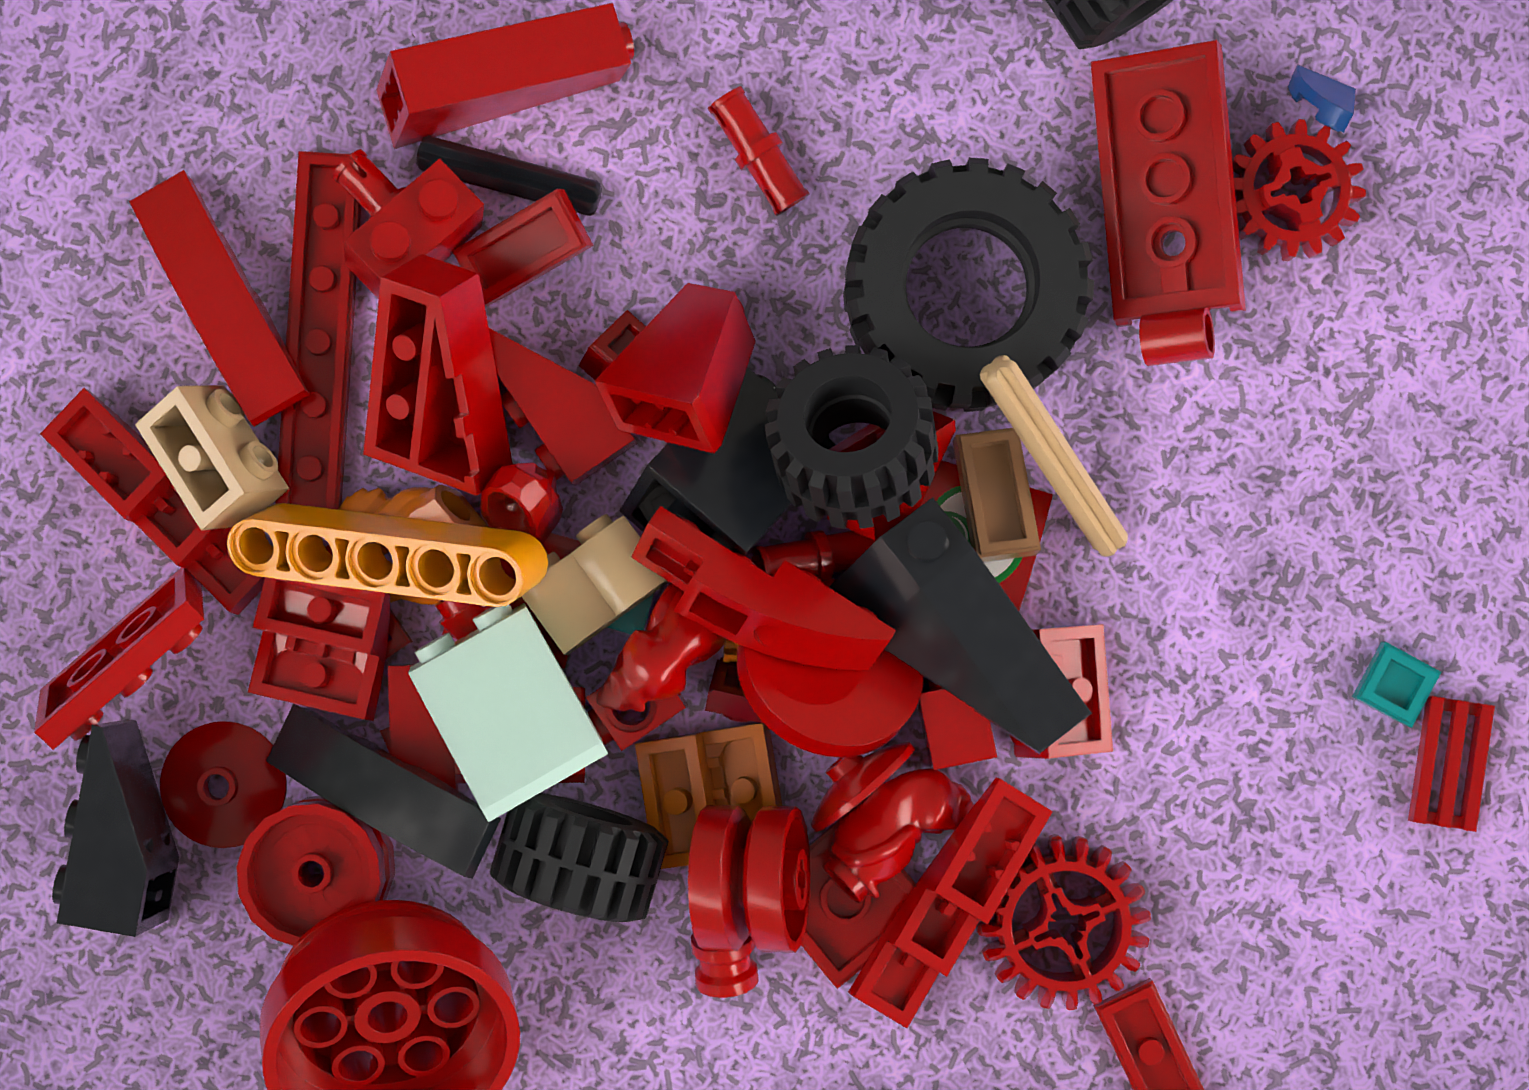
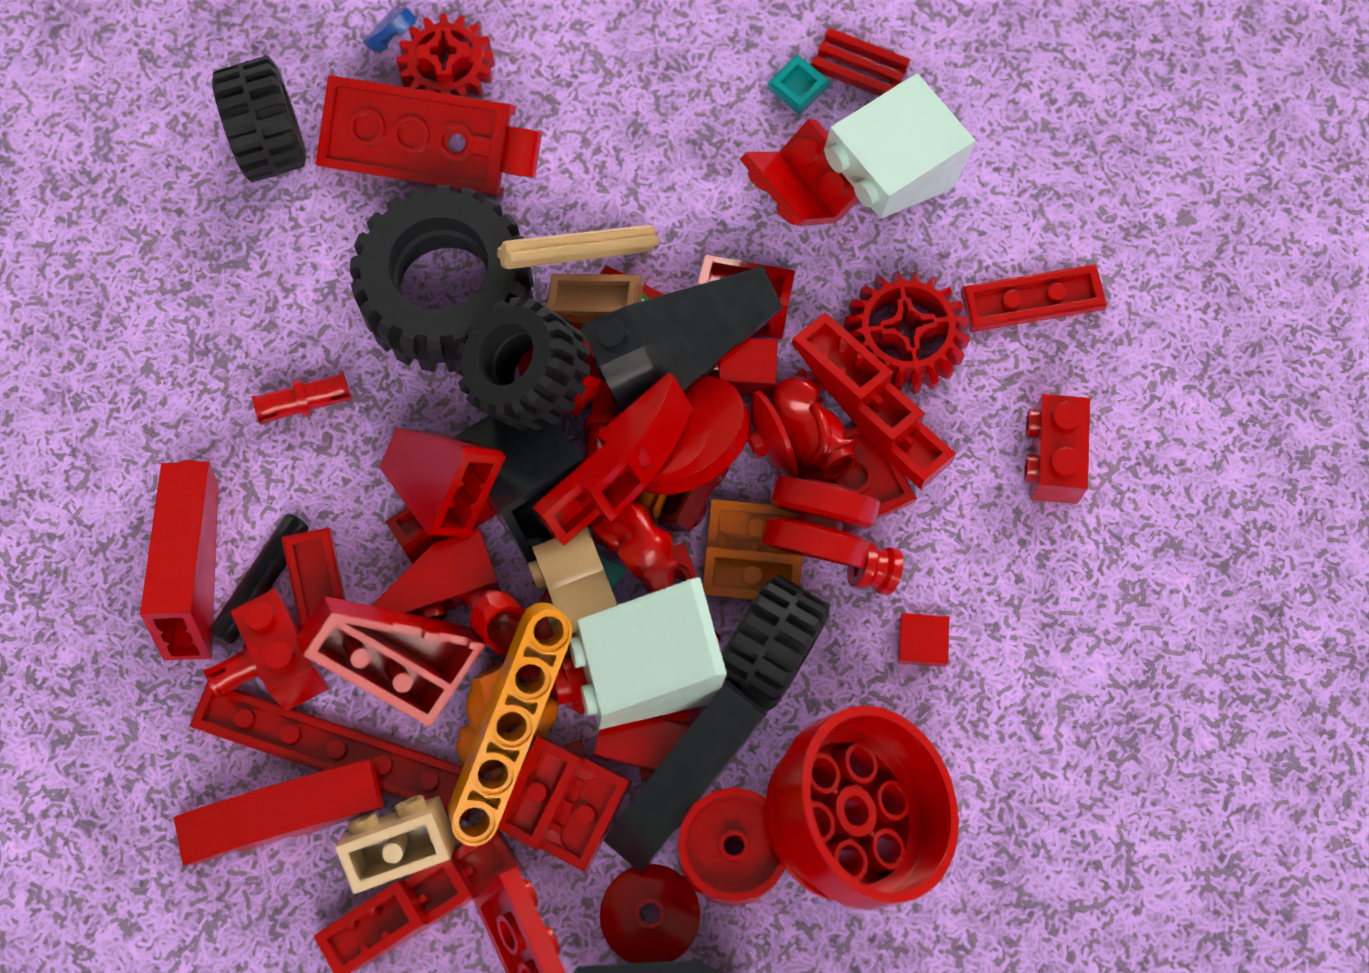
camera: 75 degrees left, 15 degrees down
(652, 1040) = (923, 639): none -> red tile
(1248, 735) = (802, 179): none -> red bracket
(1315, 855) = (900, 148): none -> light aqua slope

